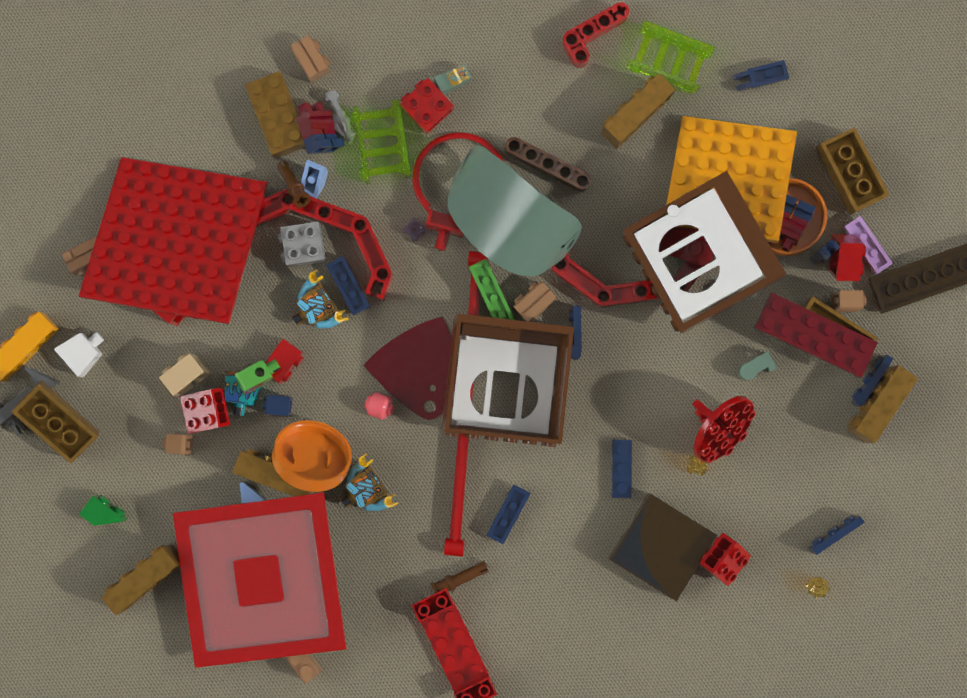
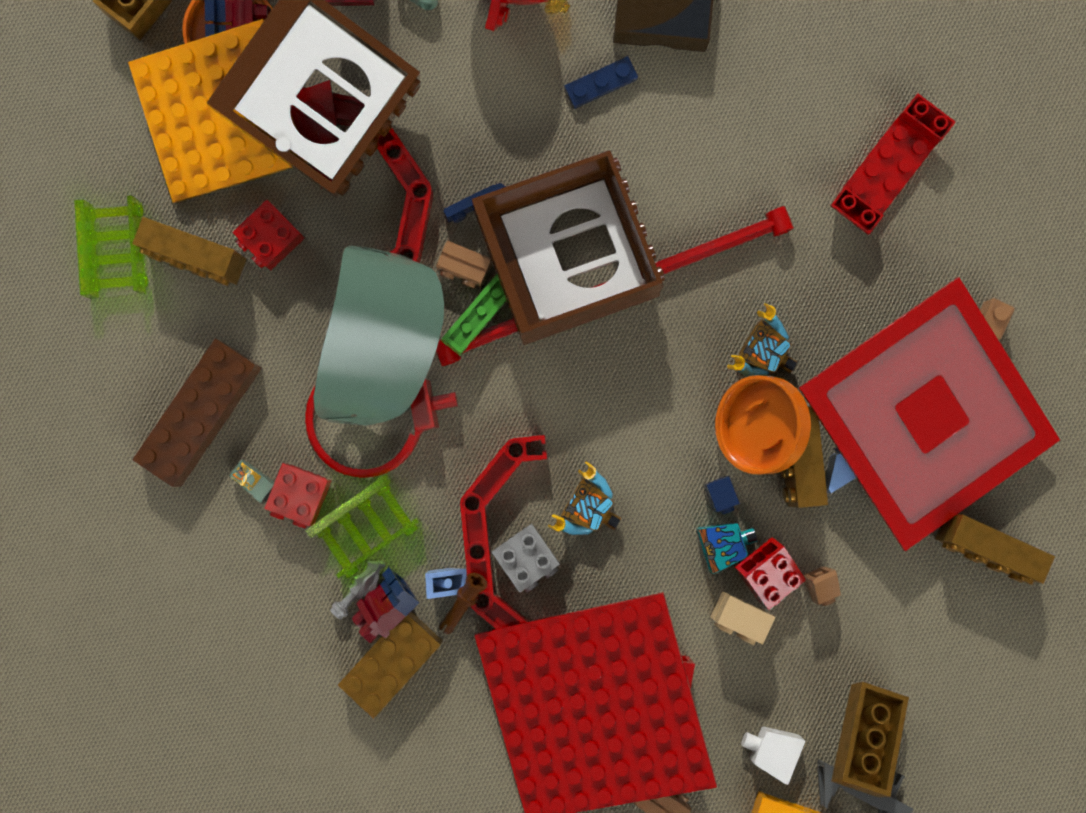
camera: 120 degrees left, 0 degrees up
(100, 512) = (941, 633): green slope -> none
(250, 381) = (714, 537): bright green torso -> none
(286, 357) = (669, 514): red brick -> none
(310, 58) = (306, 658): medium nougat brick -> none
(348, 285) = (547, 483): dark blue plate -> none
(379, 405) = (665, 380): coral head -> none
(414, 224) = (440, 443): clear purple plate -> none
(414, 363) = (596, 366): dark red piece -> none
(464, 576) = (819, 205): reddish brown pin -> none
(508, 514) = (713, 180): dark blue plate -> none
(520, 63) = (197, 413): none -> reddish brown brick
(541, 156) = (295, 314): reddish brown beam -> none
(597, 31) = (118, 345): red beam -> none
(623, 172) = (267, 236): none -> red brick
(763, 75) = (83, 135): dark blue hinge -> none

